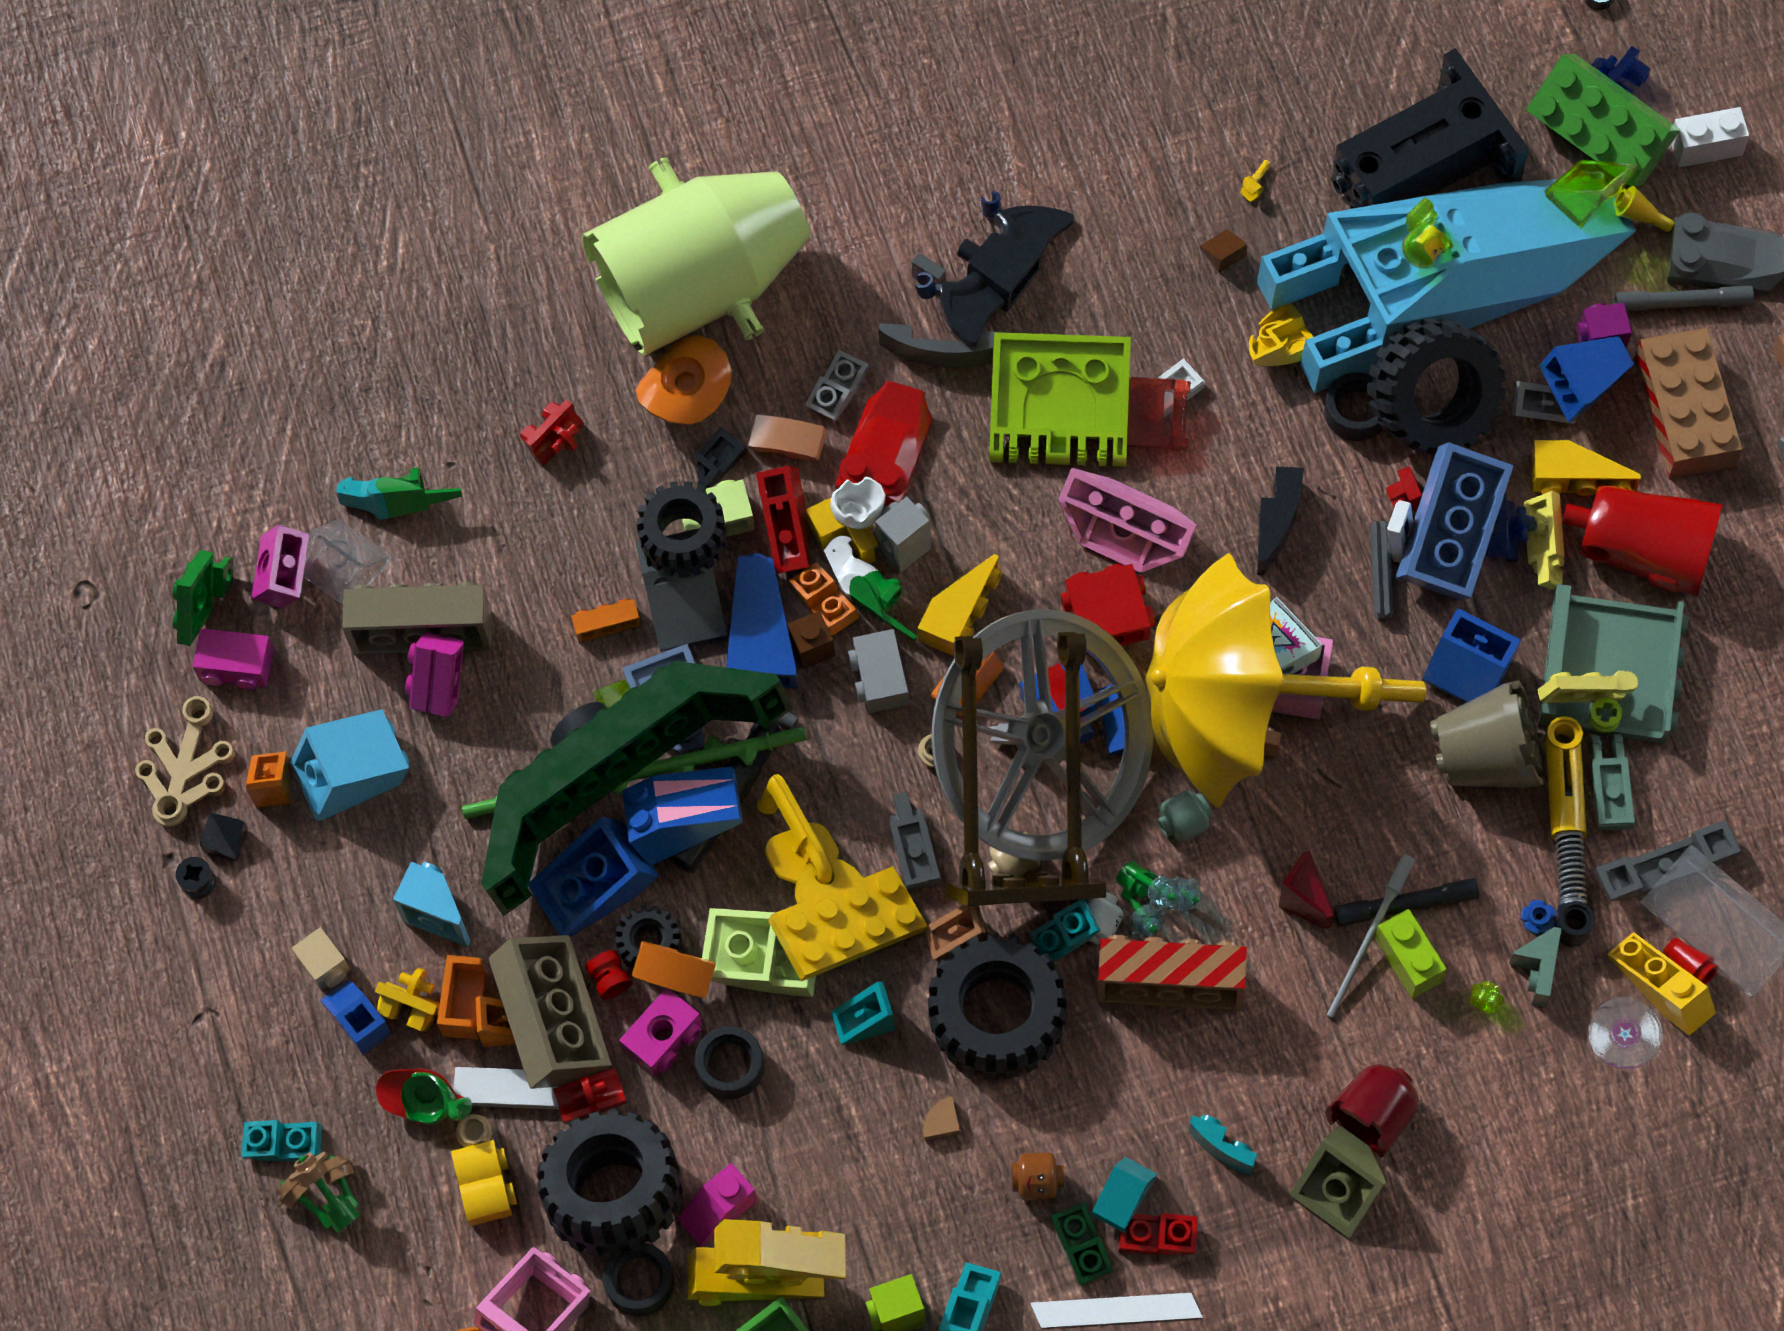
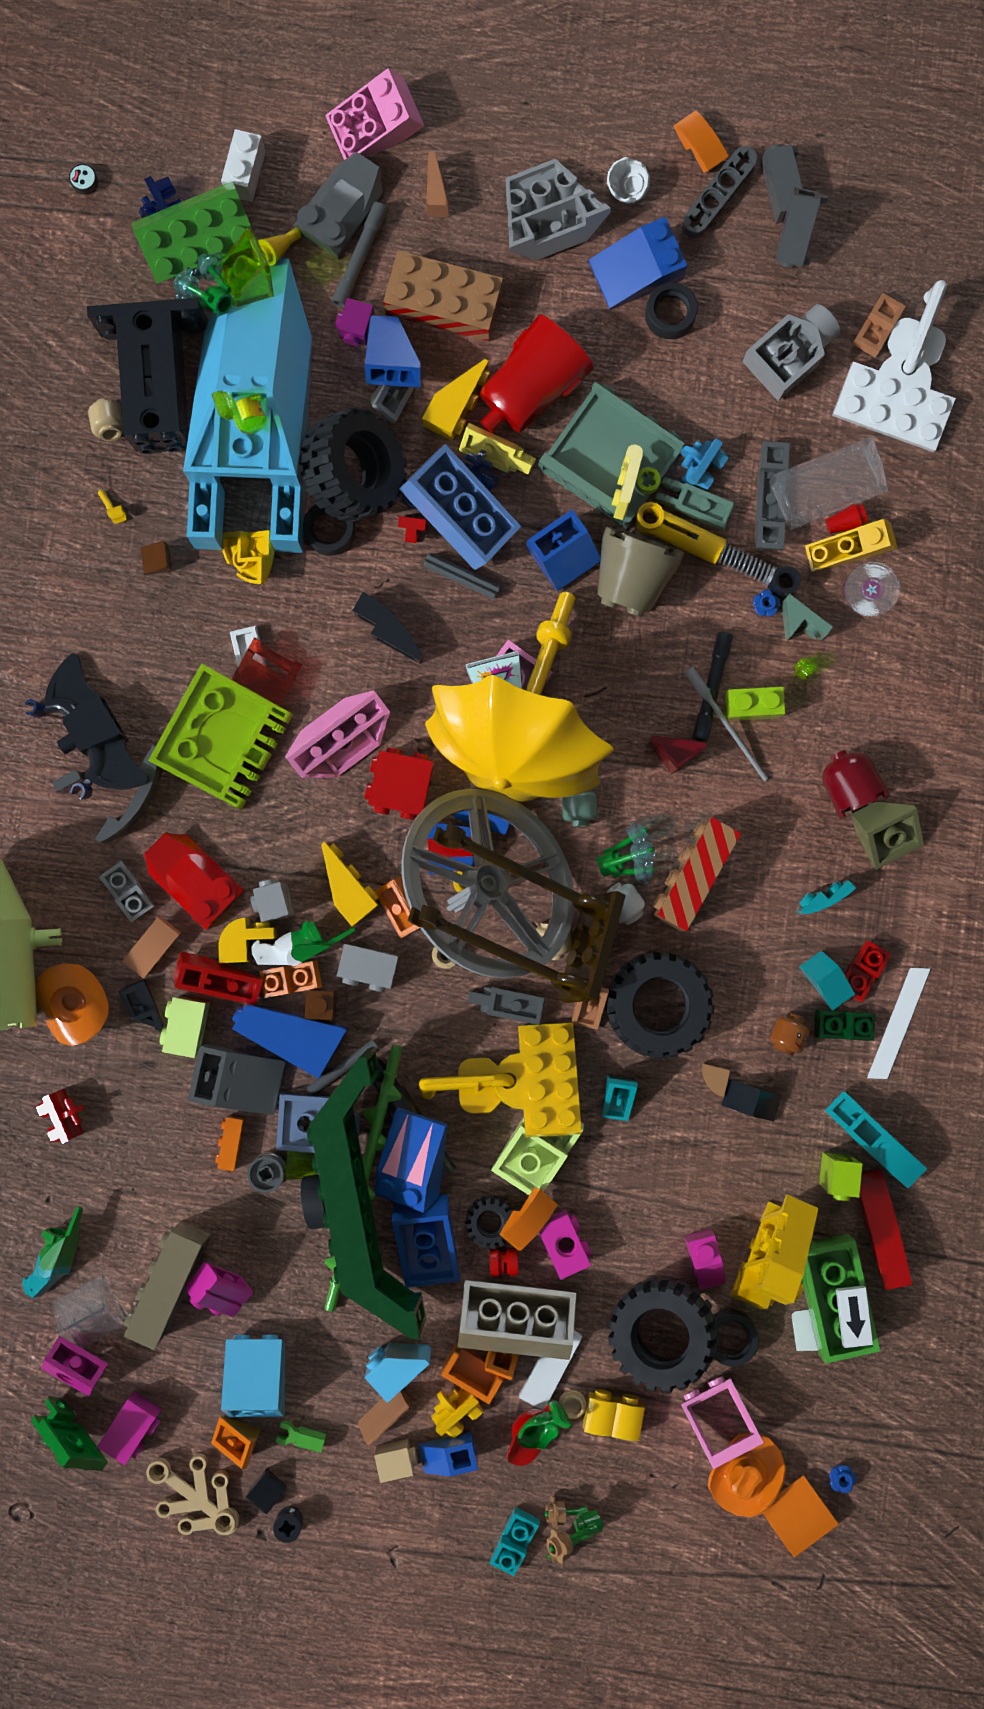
camera: 70 degrees left, 20 degrees up
(302, 850) = (302, 1437): none -> bright green bar
(368, 926) = (383, 1416): none -> nougat slope
(589, 1095) = (588, 1315): red hips -> none
(592, 667) = (267, 1171): none -> dark grey wheel
(677, 504) = (177, 1077): black tyre -> none
(724, 1035) = (607, 1227): black tyre -> none
(858, 503) = (237, 925): white hair -> none
(936, 1176) = (751, 1100): none -> black slope
(1066, 931) = (629, 932): teal slope -> none
(1346, 125) = (106, 419): none -> tan head
(1399, 529) = (445, 548): white tile -> none
(1539, 166) = (214, 297): none -> plant
(1644, 768) = (698, 459): none -> dark azure hips

